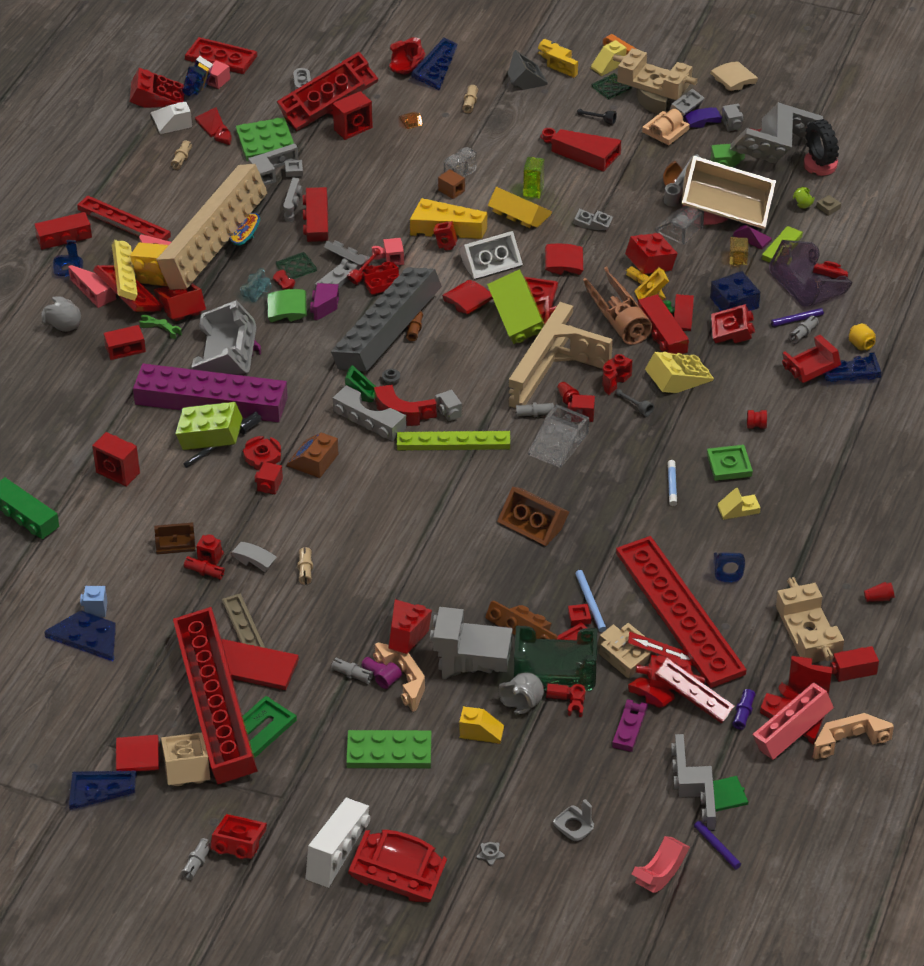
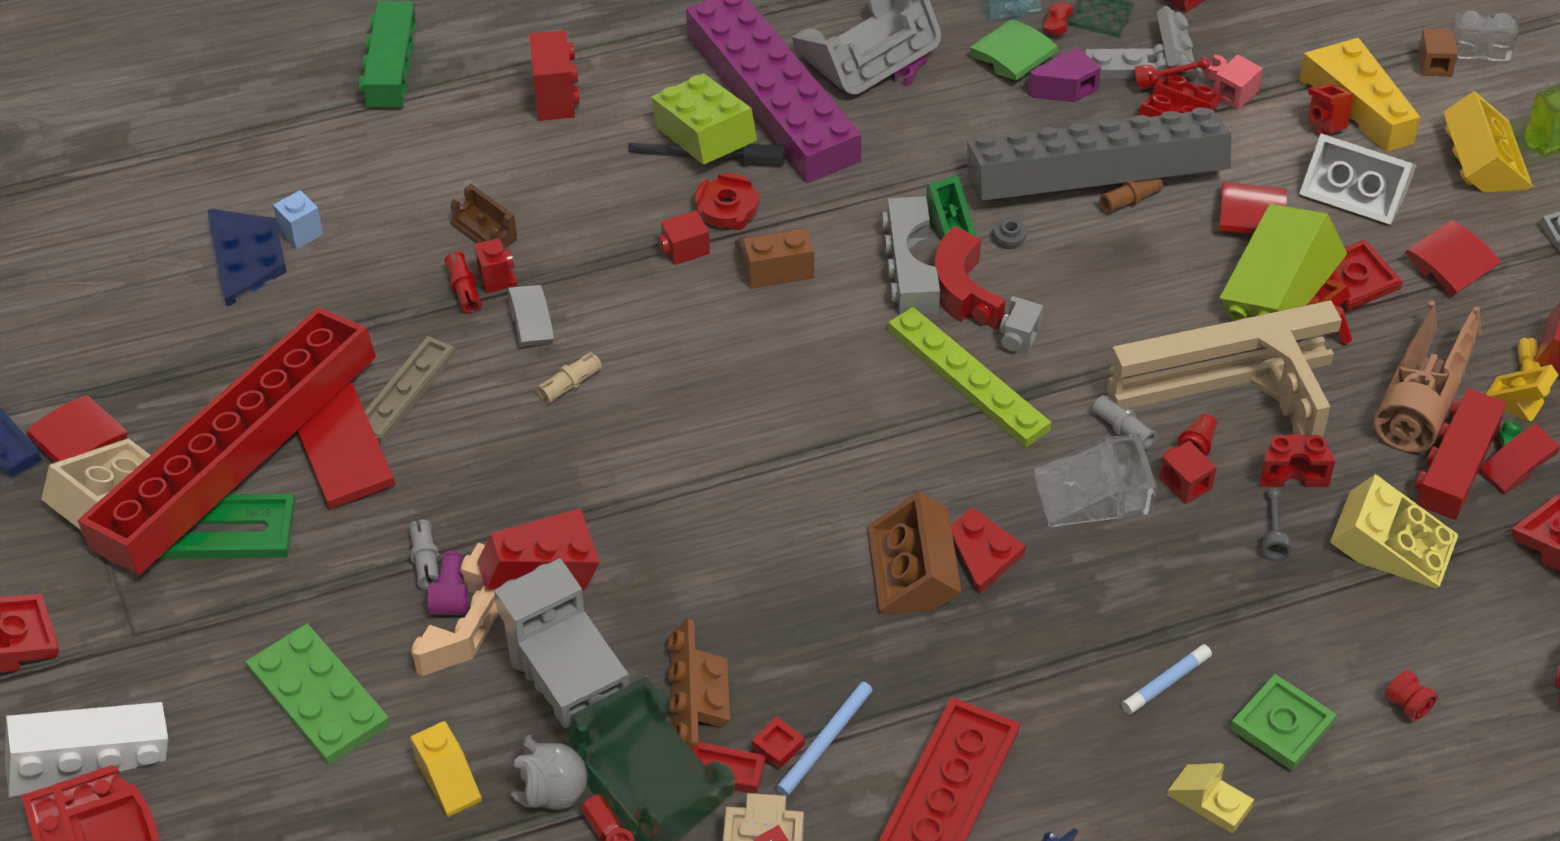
camera: 50 degrees right, 5 degrees up
(551, 491) = (984, 548): none -> red wing

